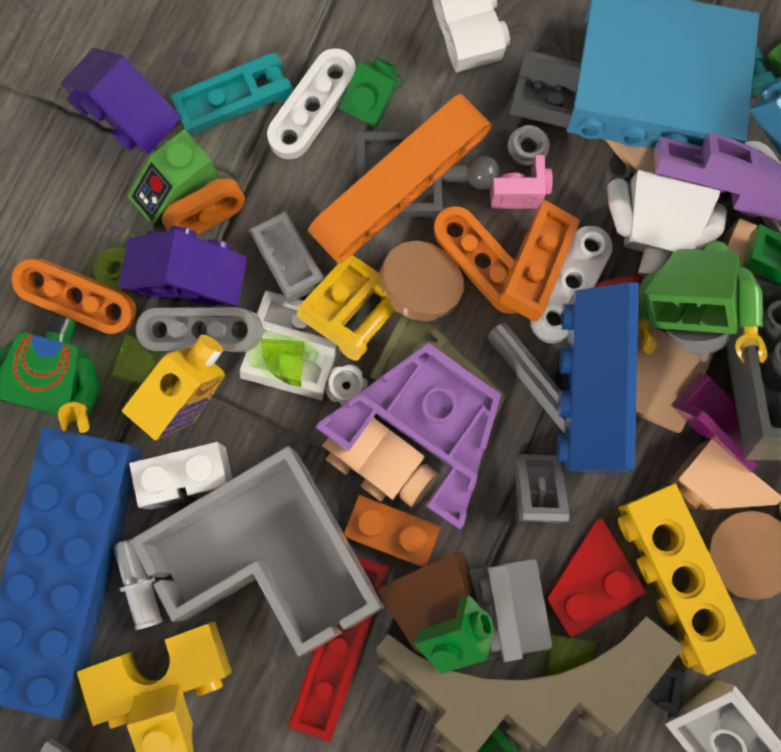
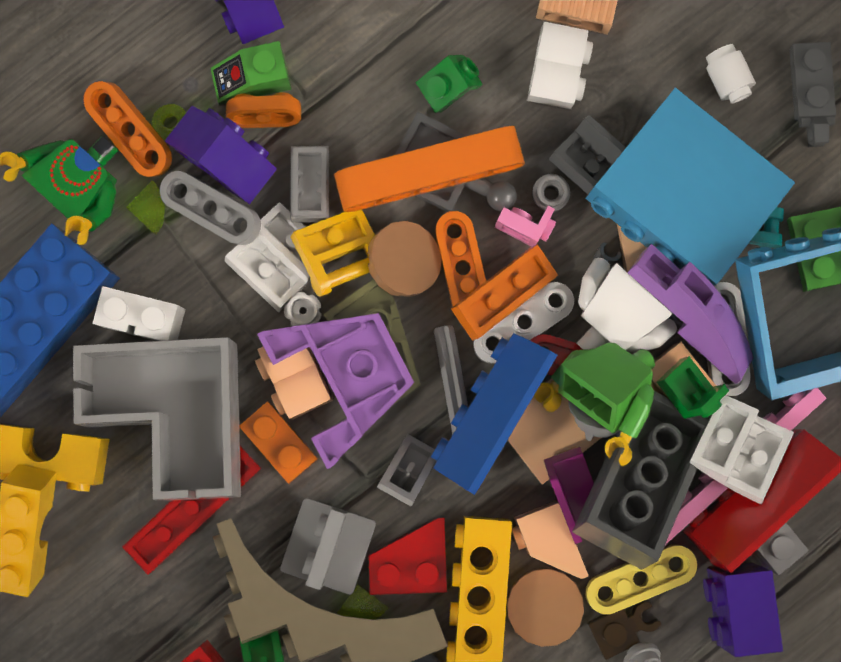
camera: 25 degrees right, 5 degrees up
(137, 587) = (62, 383): white axle -> none
(177, 389) = (178, 245): yellow torso -> none
(232, 94) = (335, 27): teal plate -> none
(284, 359) = (264, 265): clear neon green tile -> none
(313, 88) = (406, 55): white plate -> none
(418, 485) = (316, 418): light nougat tile -> none
(429, 594) = (279, 517): reddish brown torso -> none
(457, 640) = (278, 551): green bracket -> none

